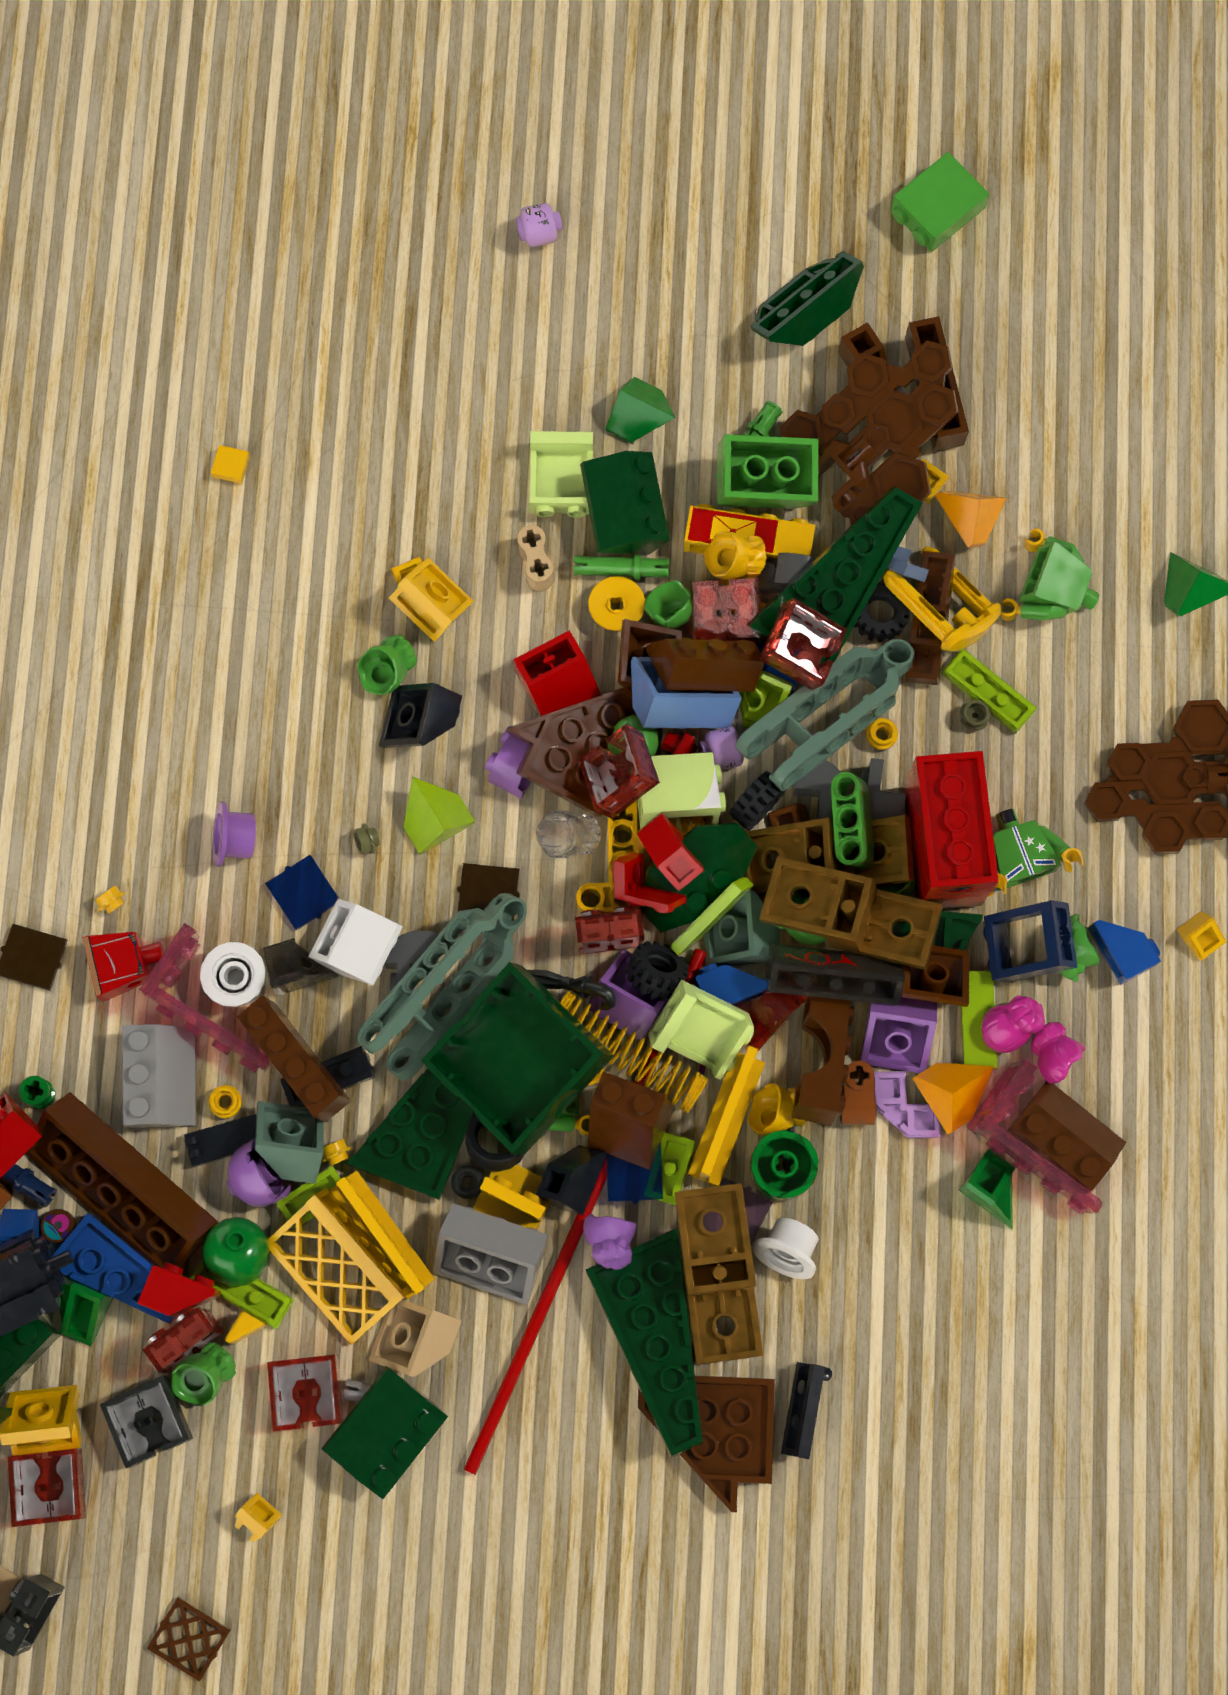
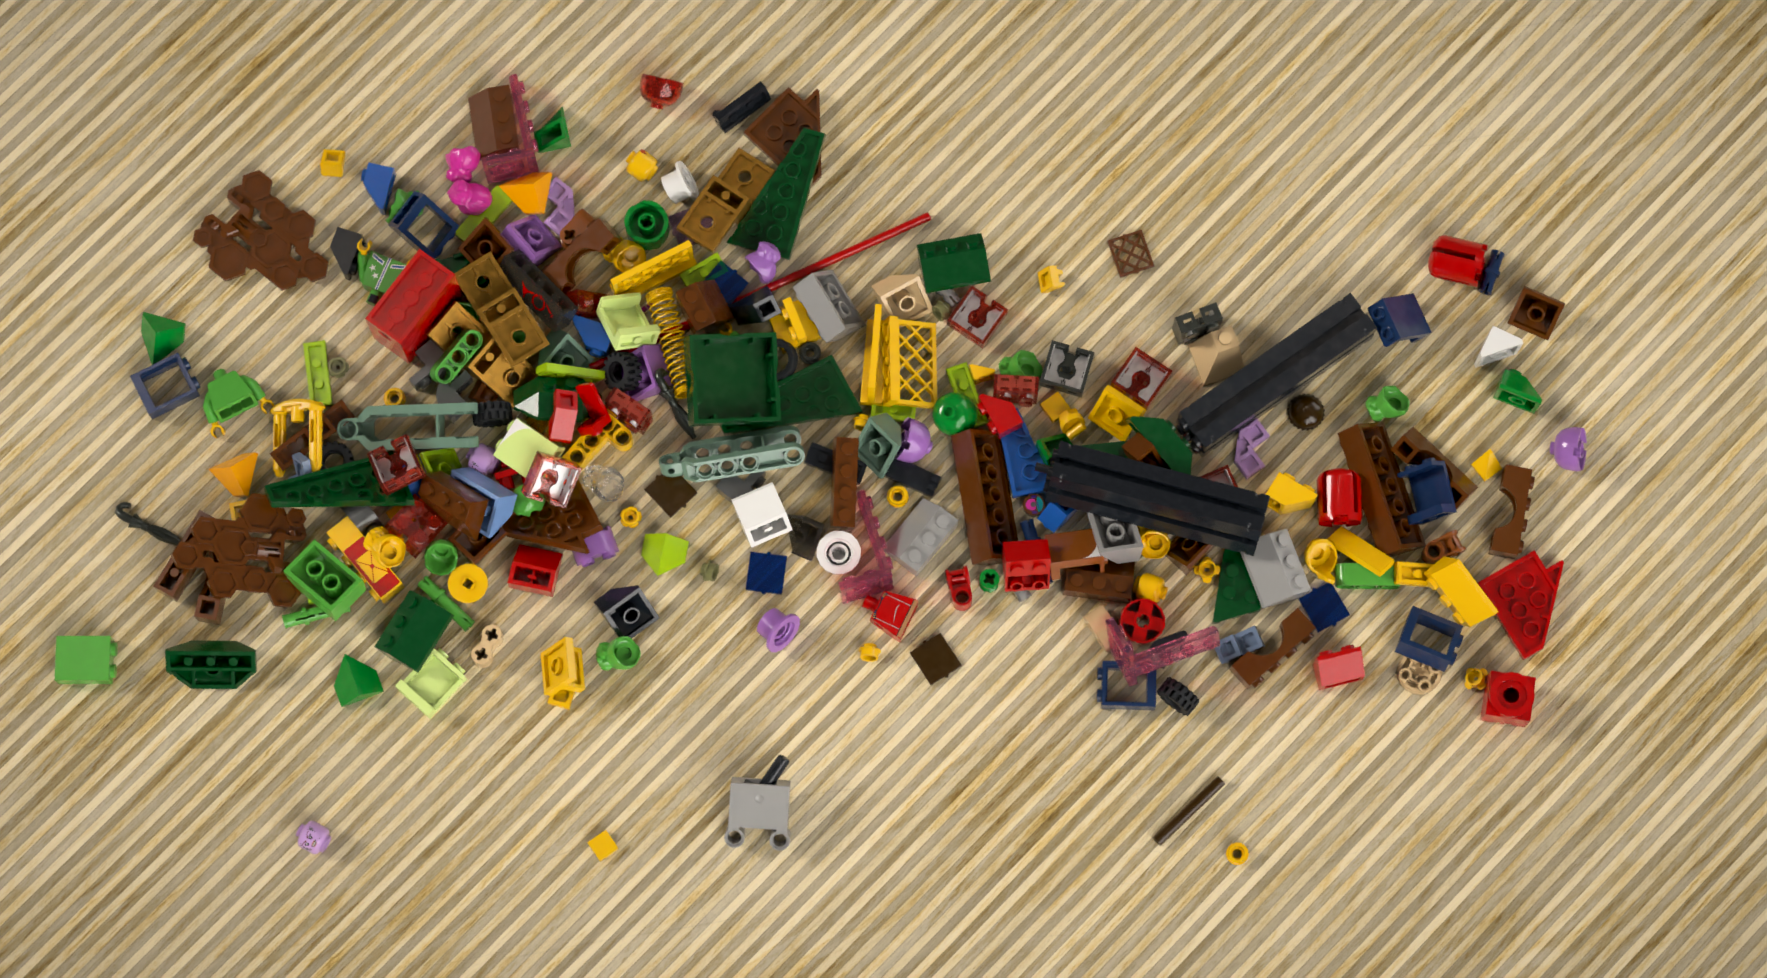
camera: 140 degrees left, 0 degrees up
(69, 1060) = (959, 583): none -> red piece
(84, 628) = (760, 805): none -> light grey piece
(87, 1360) = (1071, 423): none -> yellow piece
(126, 1365) = (1054, 406): none -> yellow tile
(355, 1366) = (941, 310): none -> olive plate
(506, 816) = (630, 511): none -> yellow plate
(855, 1233) = (641, 165): none -> yellow head
(915, 1343) = (660, 91): none -> clear red cylinder
(1026, 378) = (136, 522): none -> pearl dark grey piece
(1093, 841) = (346, 251): none -> black slope
(1147, 510) = (156, 369): none -> dark blue window

